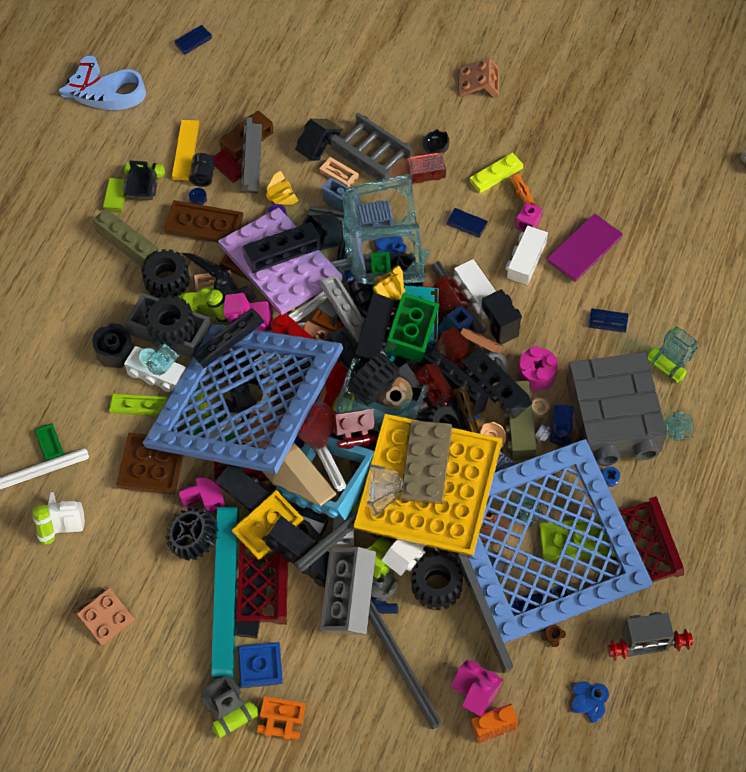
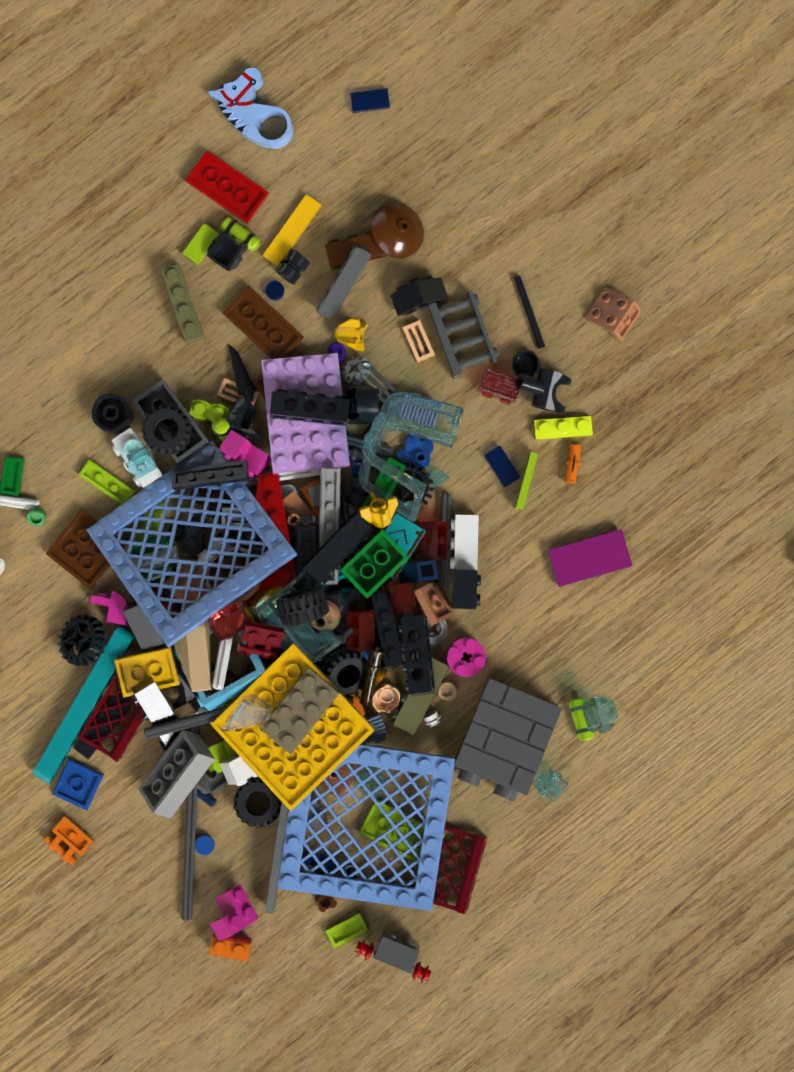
camera: 30 degrees right, 25 degrees up
(90, 461) = (36, 516): none -> green tile
(113, 145) = (227, 187): none -> red plate
(164, 262) = (188, 351): black tyre -> none
(227, 166) = (320, 271): dark red tile -> none
(228, 707) = (30, 806): dark grey piece -> none
(271, 105) = (389, 234): none -> reddish brown dish
(303, 210) = (354, 377): none -> light grey gear
(333, 192) = (401, 373): sand blue brick -> none
(411, 650) = (204, 845): none -> blue tile
(413, 111) = (529, 312): none -> black bar
(463, 147) = (543, 388): none -> black connector
(494, 220) = (526, 481): none -> lime tile
(526, 255) = (532, 534): white brick -> none
(529, 216) = (559, 497): dark pink brick -> none
(561, 424) = (448, 727): clear blue brick -> none
(587, 702) = (316, 971): blue plate -> none
(589, 650) = (346, 930): none -> lime tile
(608, 318) = (575, 653): clear blue tile -> none
(611, 470) = (468, 795): blue bush -> none

